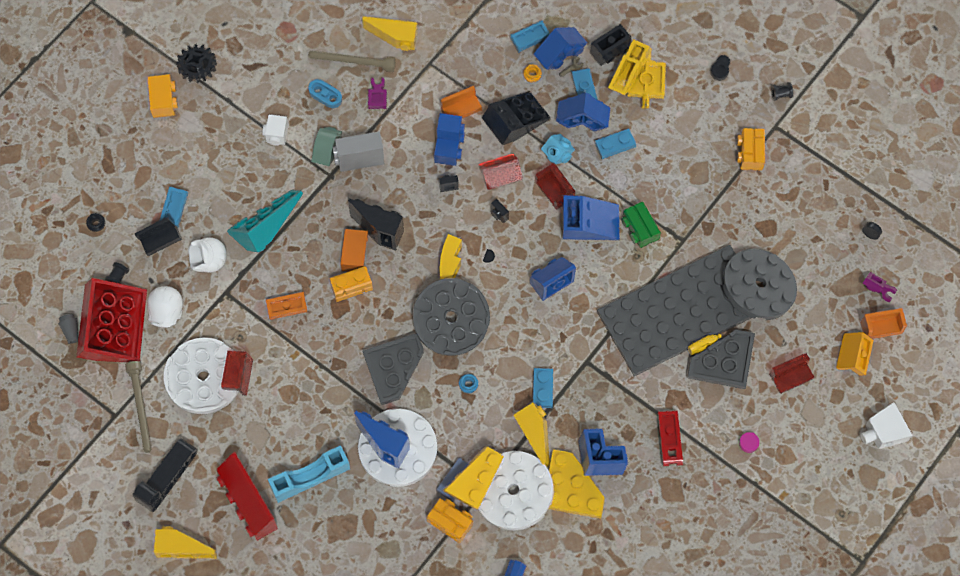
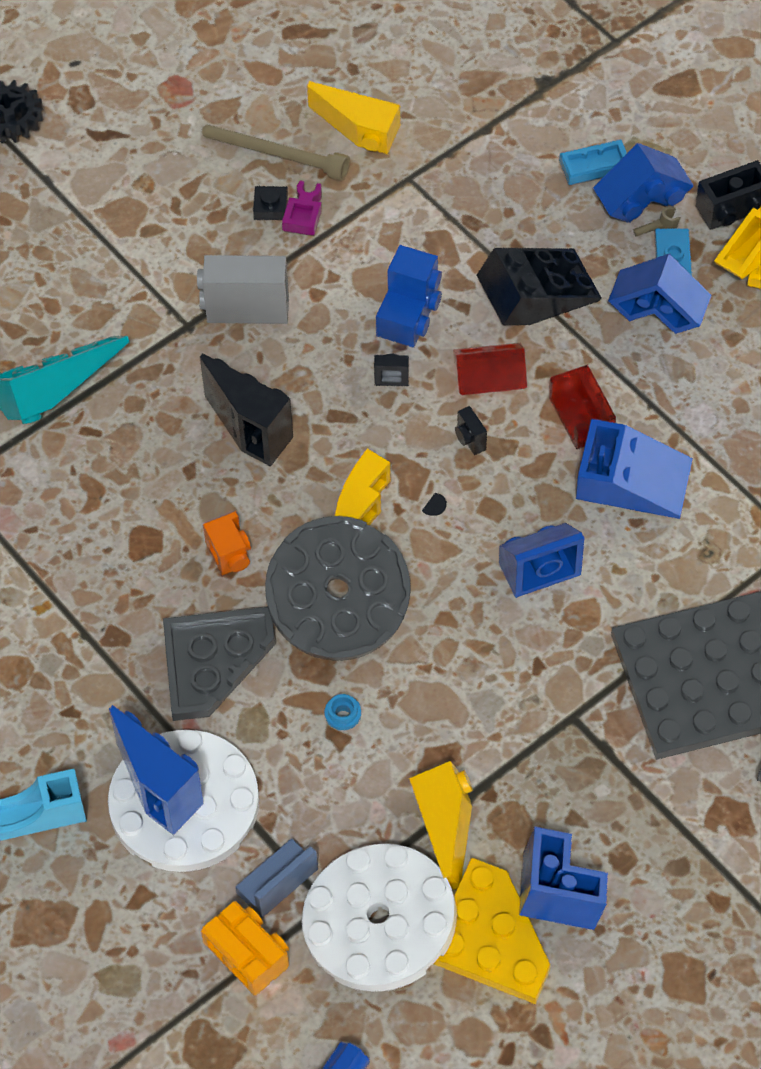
camera: 15 degrees right, 10 degrees down
(276, 130) = (113, 234): white brick -> none
(286, 305) = (49, 520): orange plate -> none
(324, 145) = (180, 275): sand green brick -> none
(326, 94) = (218, 193): dark azure plate -> none
(351, 284) = (172, 503): light orange brick -> none
(353, 249) = (192, 450): orange panel -> none
(357, 93) = (270, 202): none -> black plate
(385, 301) = (227, 543): none -> orange brick
(461, 103) = (450, 241): orange panel -> none
(476, 478) = (308, 878): yellow wing -> none
(532, 69) = (582, 214): light orange plate -> none
(543, 387) = (480, 745): dark azure plate -> none
(558, 149) = (601, 346): medium azure brick -> none
(615, 143) = (708, 358): dark azure plate -> none
(641, 225) = (725, 498): green brick -> none
(670, 437) = (700, 879): red plate -> none

